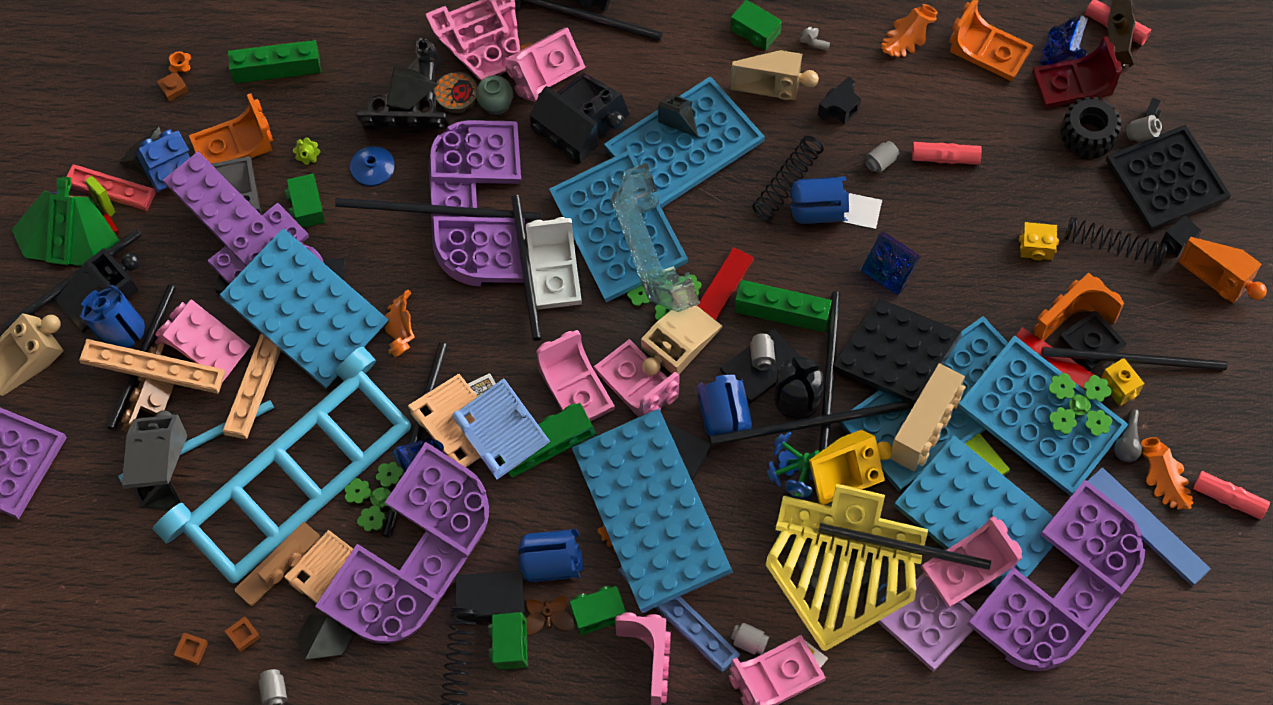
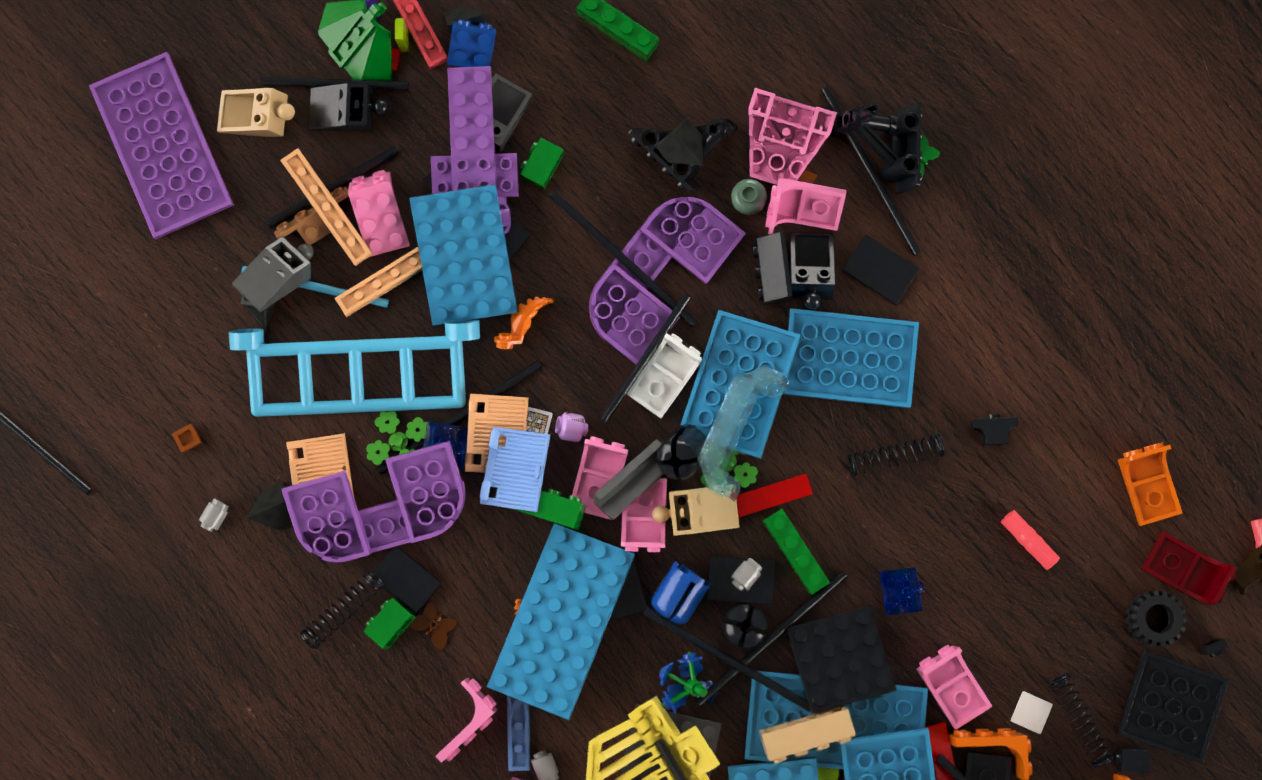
camera: 45 degrees right, 20 degrees up
(112, 317) = (331, 146): blue cylinder -> none
(235, 138) = (533, 66): orange bracket -> none
(242, 634) = (227, 458): dark orange plate -> none
(277, 564) = (292, 427): medium nougat bracket -> none
(306, 151) = (577, 122): lime plant -> none
(374, 173) = (615, 184): blue dish -> none
(456, 92) = (725, 167): tile -> none
(515, 366) = (571, 427): none -> lavender head
(550, 556) = (461, 599): blue cylinder -> none
(596, 610) = (465, 654): green brick -> none
(604, 359) = (629, 482): none -> dark grey panel
(637, 302) = (680, 452): none -> black cylinder
(645, 67) = (880, 269): none -> black tile
(678, 114) = (865, 334): pearl dark grey slope -> none
(755, 25) = (993, 309): green brick -> none
(772, 75) = (965, 367): tan slope -> none
(809, 37) = (1024, 355): light grey plate -> none
(819, 200) = (898, 496): blue cylinder -> none
(849, 462) = (721, 715): yellow slope -> none
(863, 211) = (926, 526): white sticker -> none
(882, 156) = (979, 500): light grey brick -> none
(909, 31) = (1102, 416): orange plant -> none
(998, 298) = (953, 686): none -> bright pink bracket
(1038, 241) = (1025, 669): yellow head -> none
(1064, 41) = (1207, 533): clear blue plate -> none
(1073, 269) = (1031, 712): none -> white sticker
(1144, 128) = (1193, 655): light grey brick -> none

